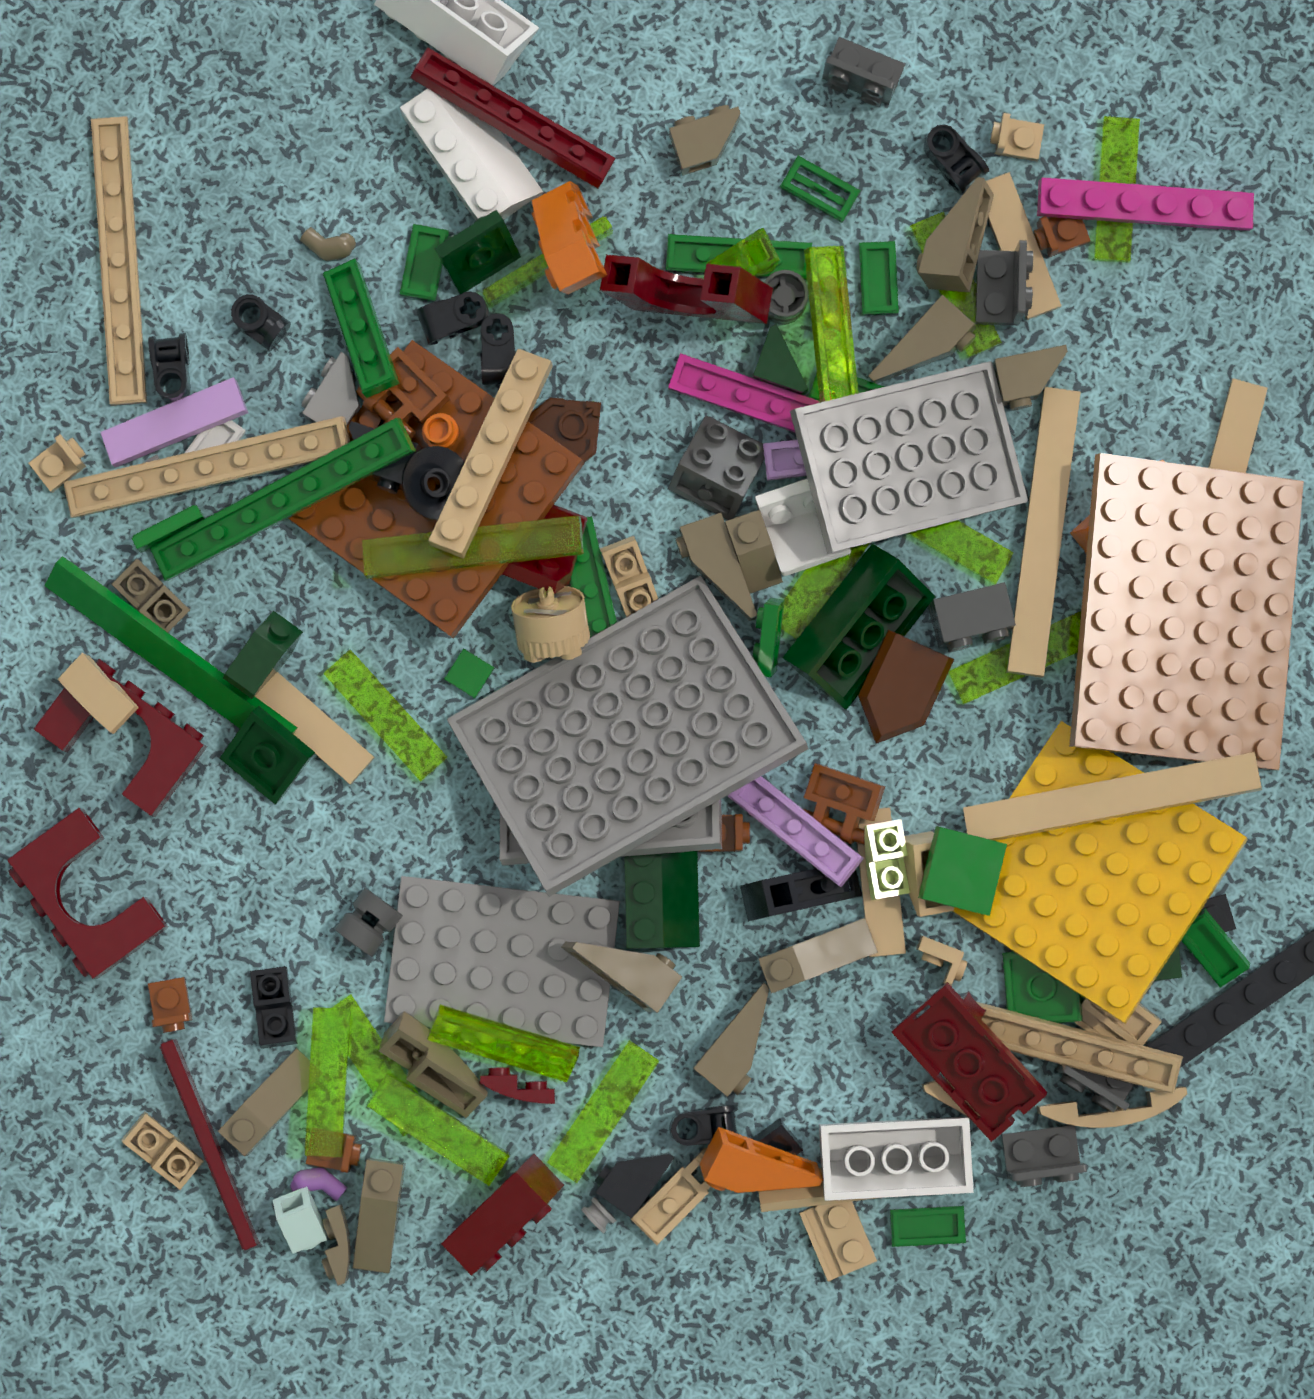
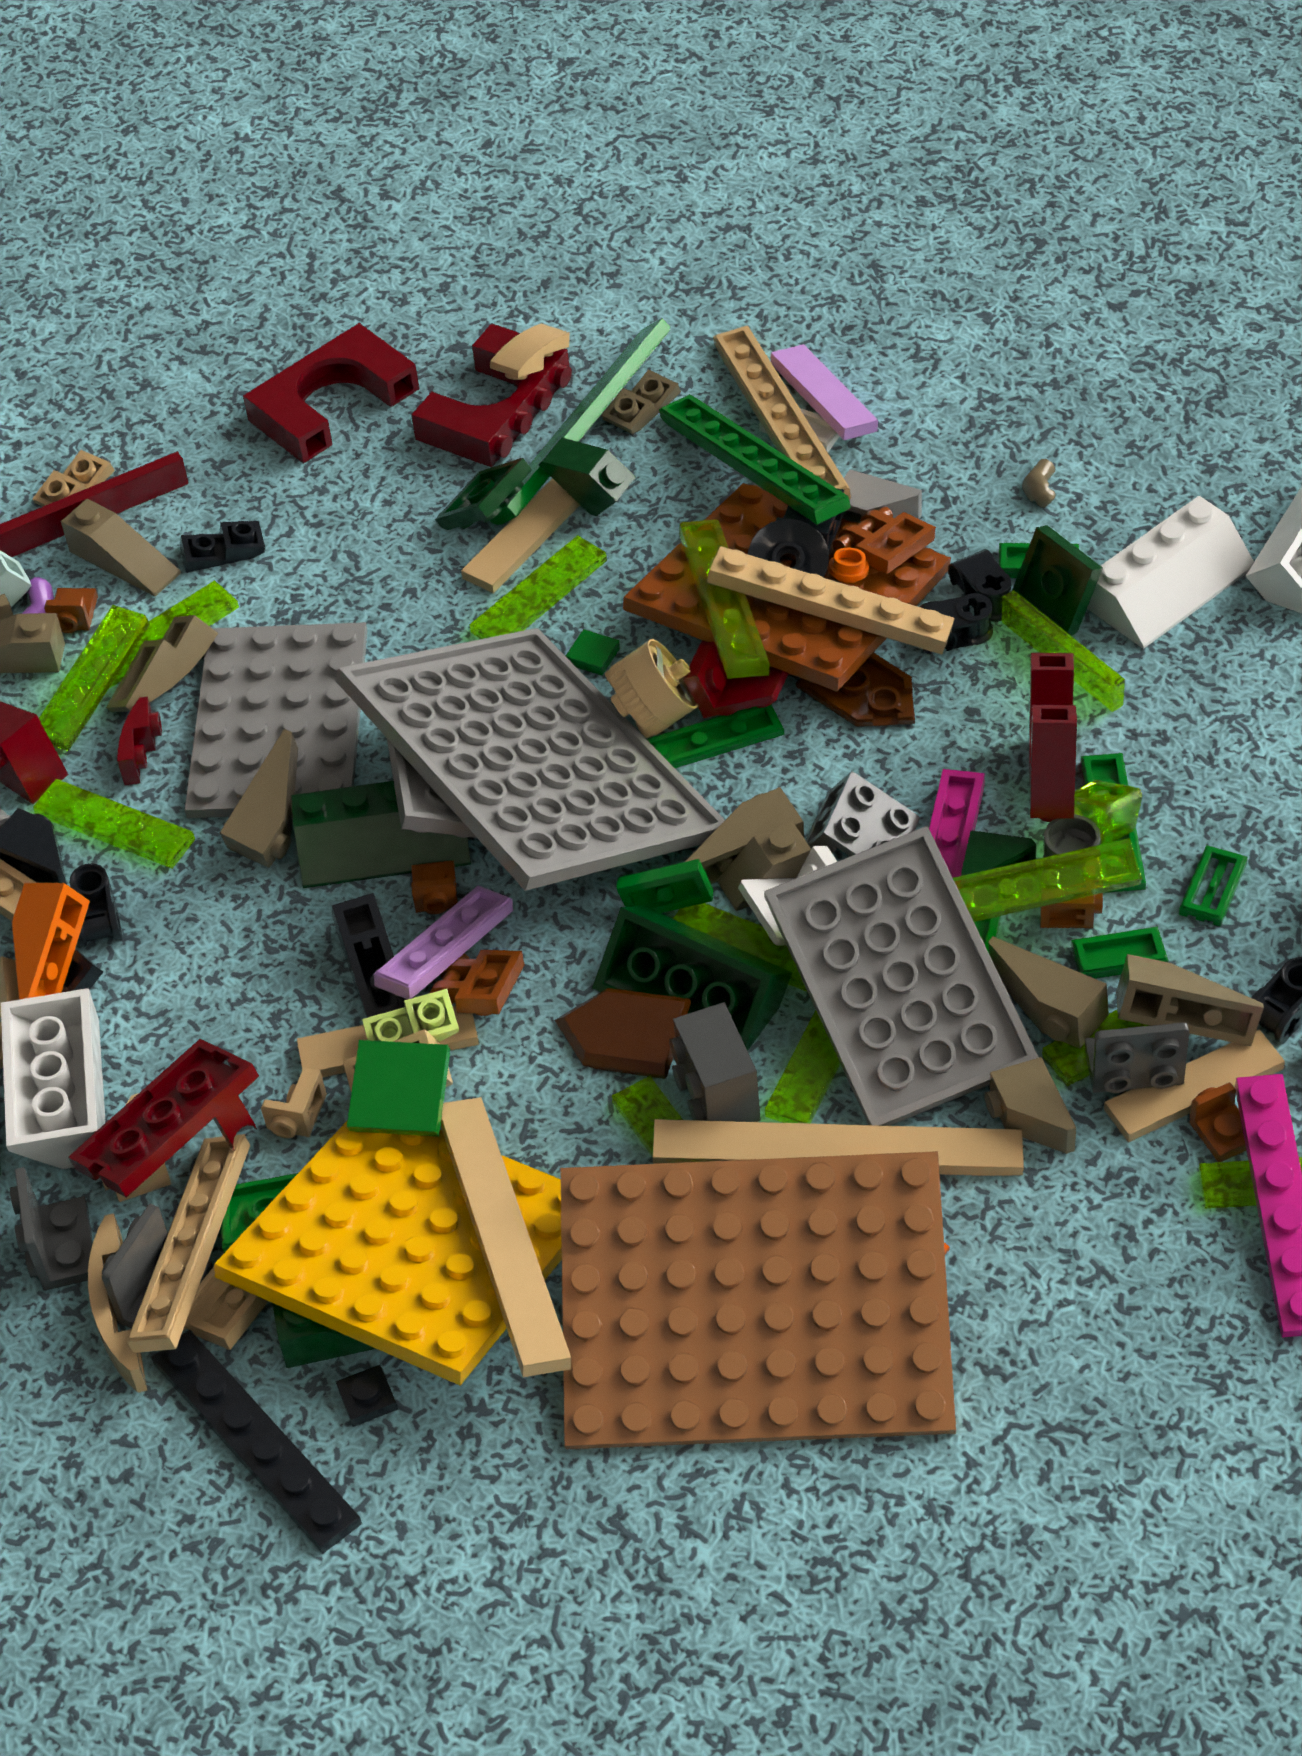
camera: 90 degrees right, 35 degrees down
(58, 462) = (768, 322): tan bracket -> none
(118, 261) = (983, 338): tan tile -> none
(167, 528) = (706, 390): green tile -> none
(169, 361) = (877, 380): black piece -> none
(170, 1004) = (221, 470): dark orange bracket -> none
(267, 329) = (943, 437): black piece -> none
(327, 1082) = (143, 585): clear neon green tile -> none
(360, 932) = (312, 596): dark grey wheel -> none
(361, 328) = (950, 503): green tile -> none
(503, 1043) = (184, 717): clear neon green plate -> none
(512, 117) = (1215, 597): dark red tile -> none
(567, 238) = (1095, 635): orange brick -> none
(629, 575) = (724, 769): tan slope -> none
(702, 141) = (1240, 766): dark tan slope -> none
(733, 1051) = (187, 923): dark tan slope -> none
(818, 955) = (292, 978): slope -> none
(1214, 949) = (323, 1390): green tile -> none
(1238, 426) = (1012, 1349): tan tile -> none

